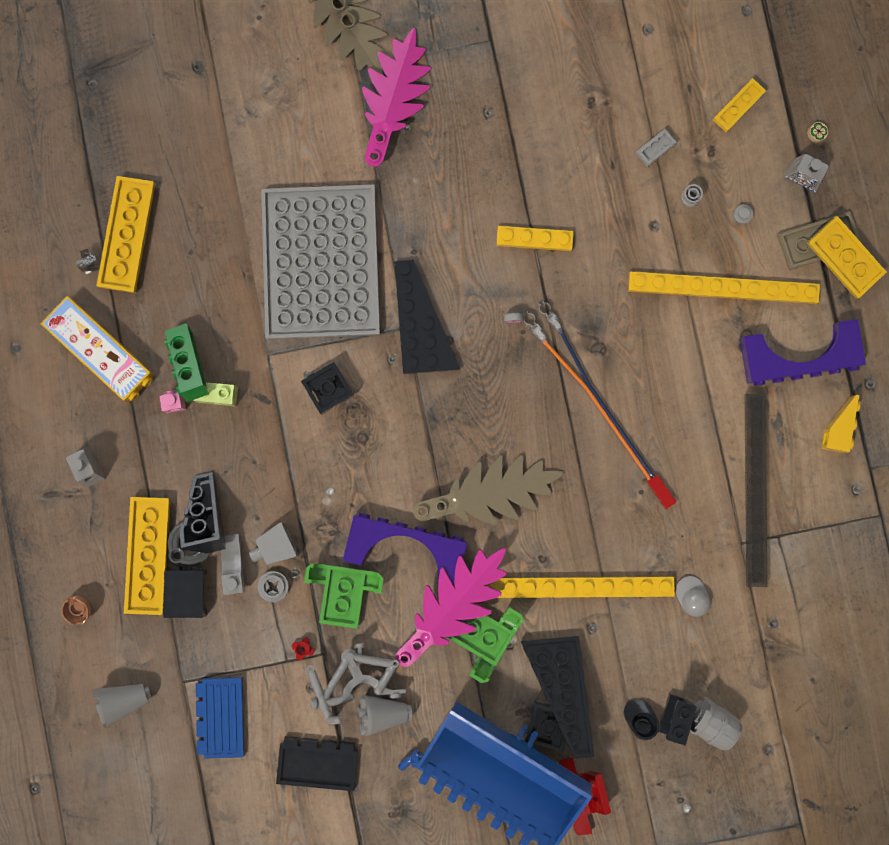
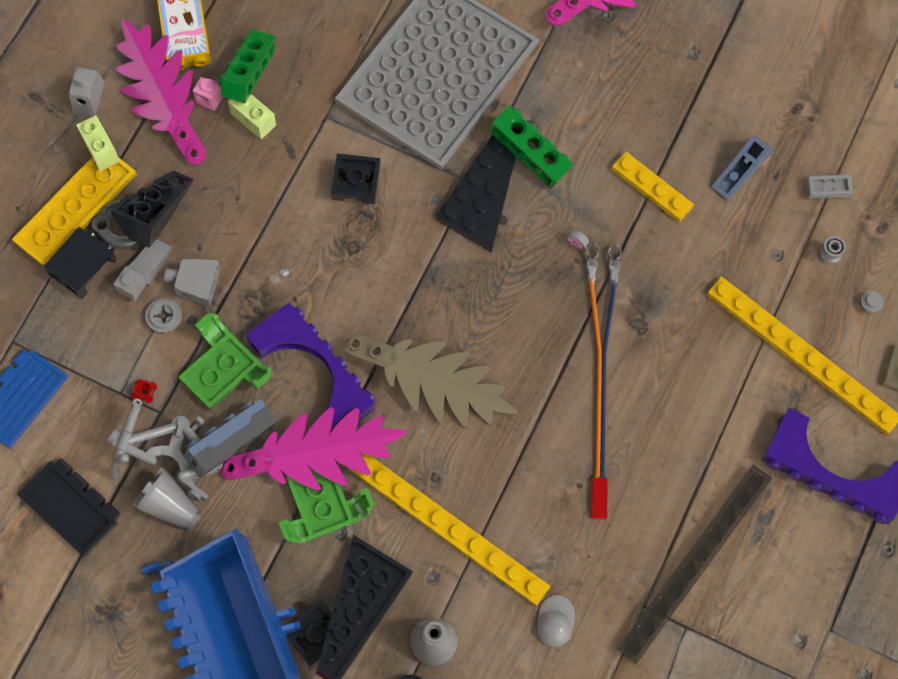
camera: 30 degrees right, 15 degrees down
(127, 501) = (98, 143): none -> yellowish green brick
(133, 425) = (158, 87): none -> dark pink plant
(390, 641) = (230, 438): none -> piece
(422, 279) = (532, 158): none -> green brick
(587, 177) = (742, 167): none -> sand blue slope
(621, 666) = (433, 650): none -> light grey cone
(839, 431) = (823, 565): yellow slope -> none

